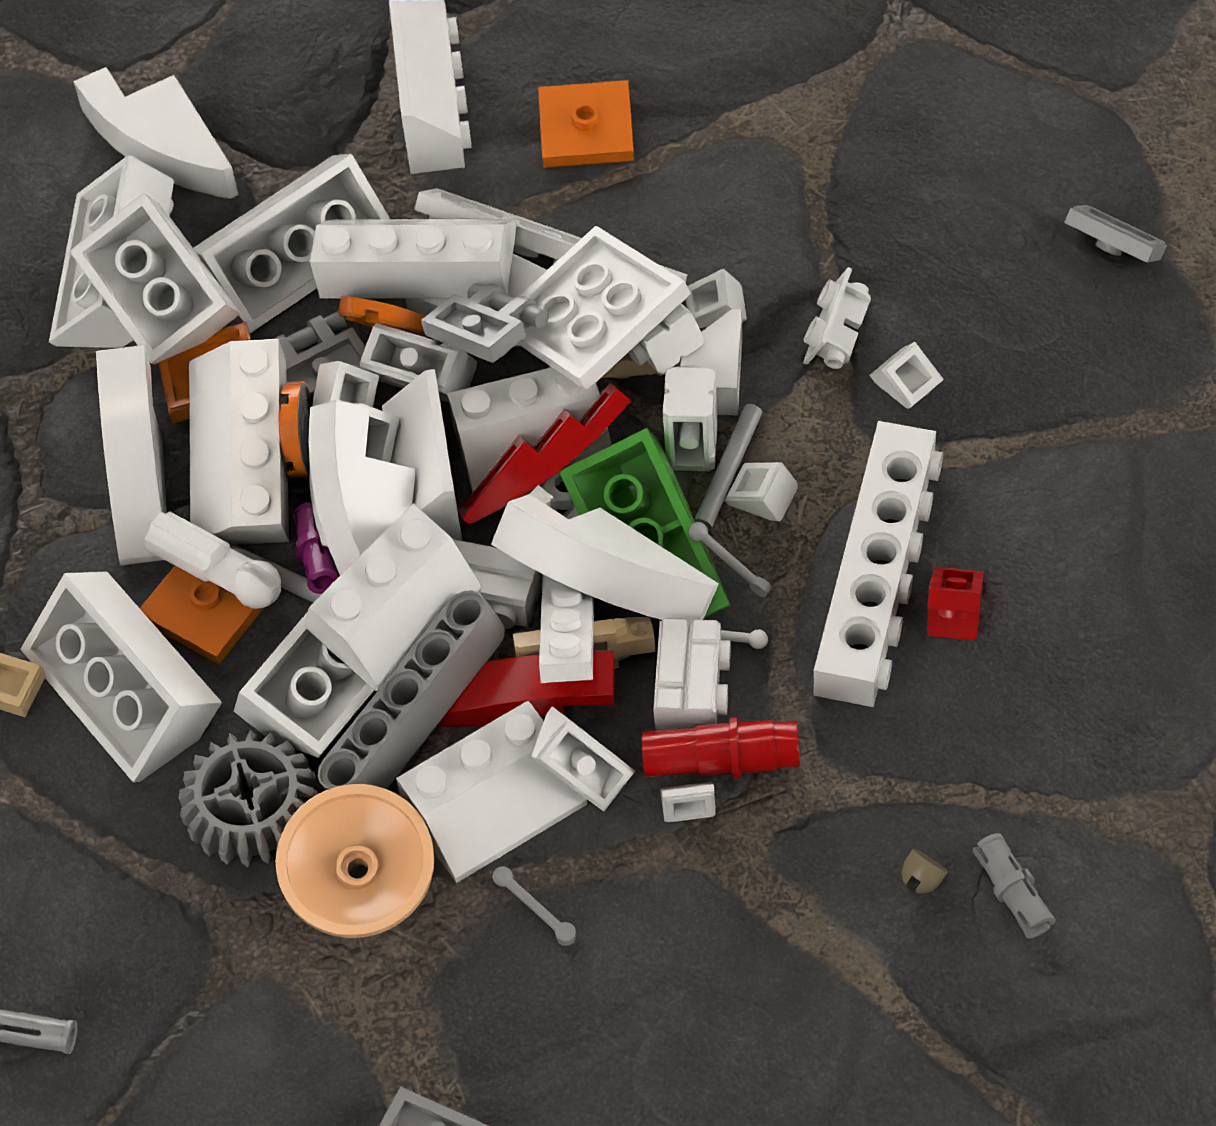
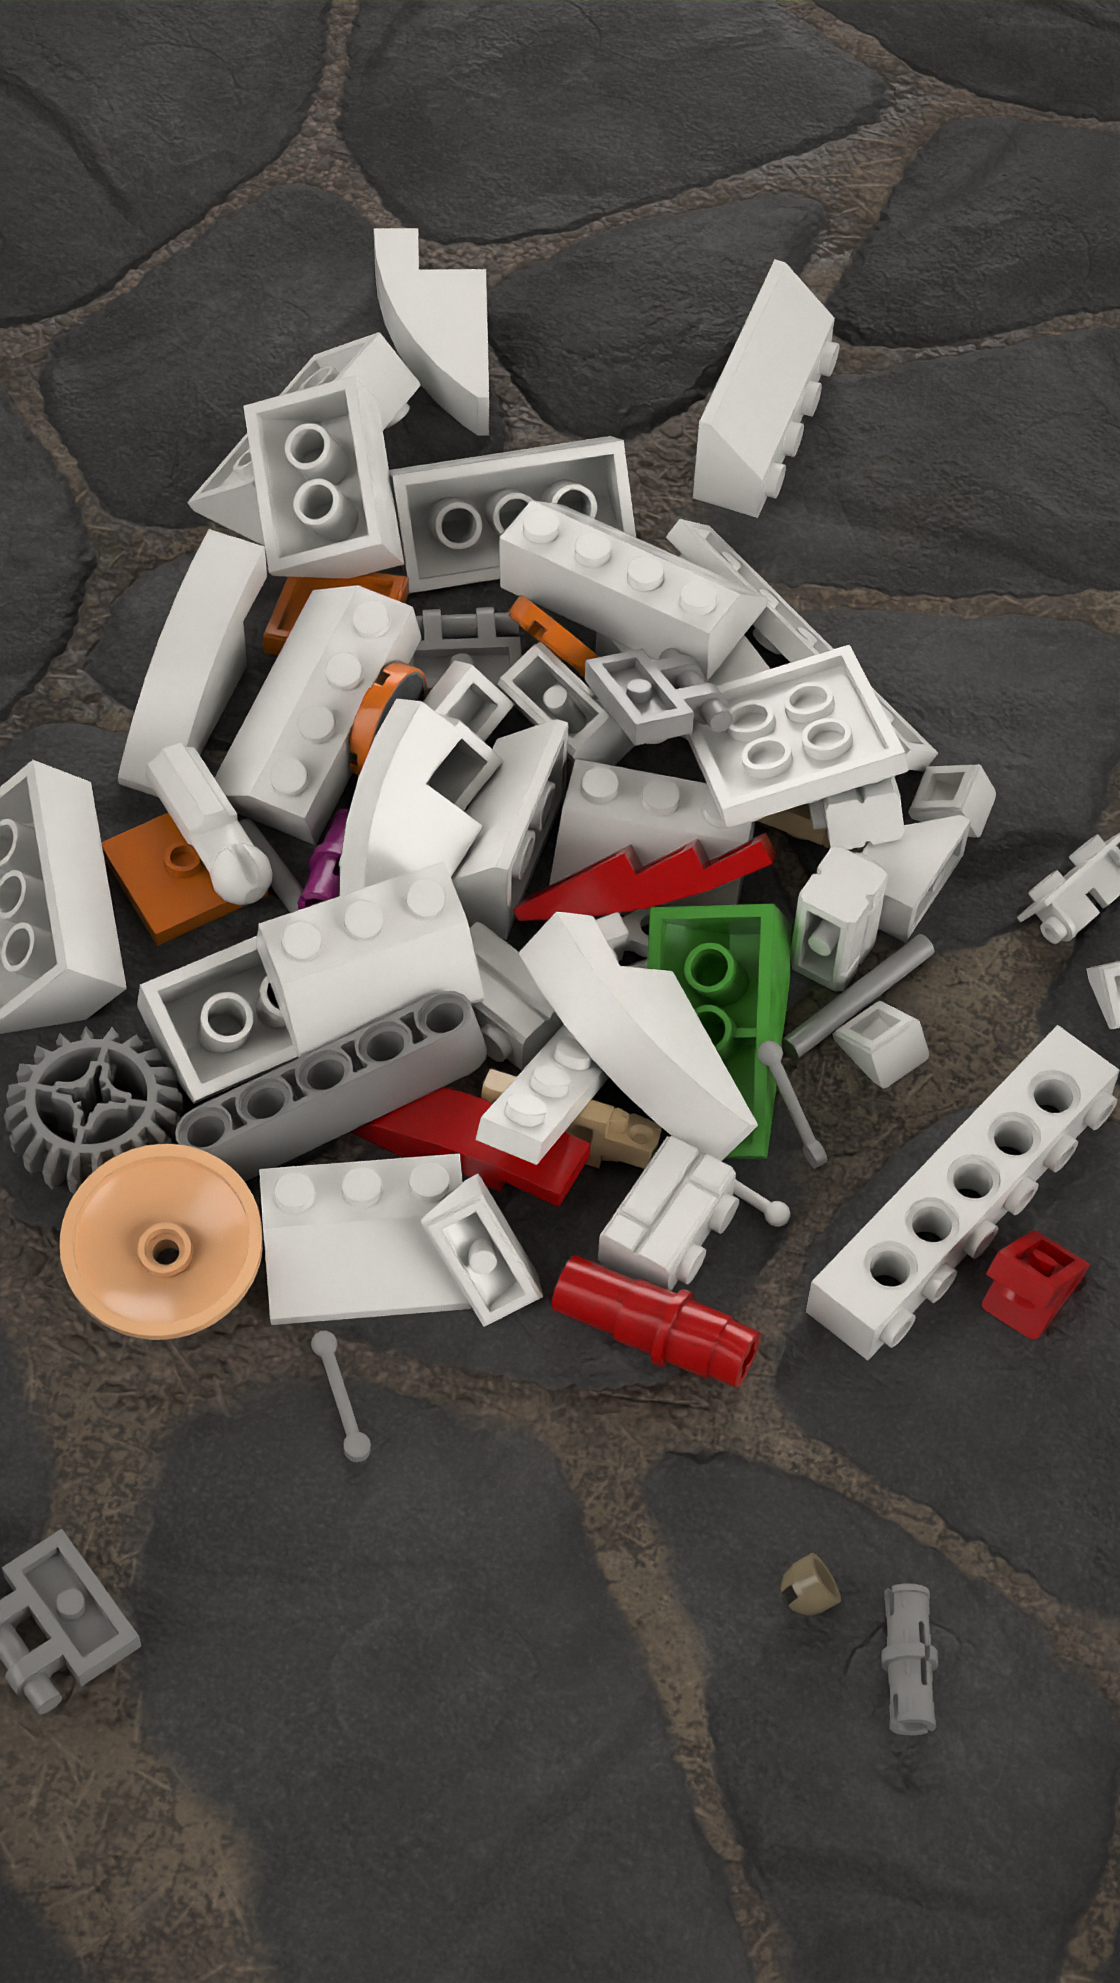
camera: 20 degrees right, 0 degrees up
(585, 124) = (921, 530): orange plate -> none
(688, 801) = (584, 1362): white slope -> none

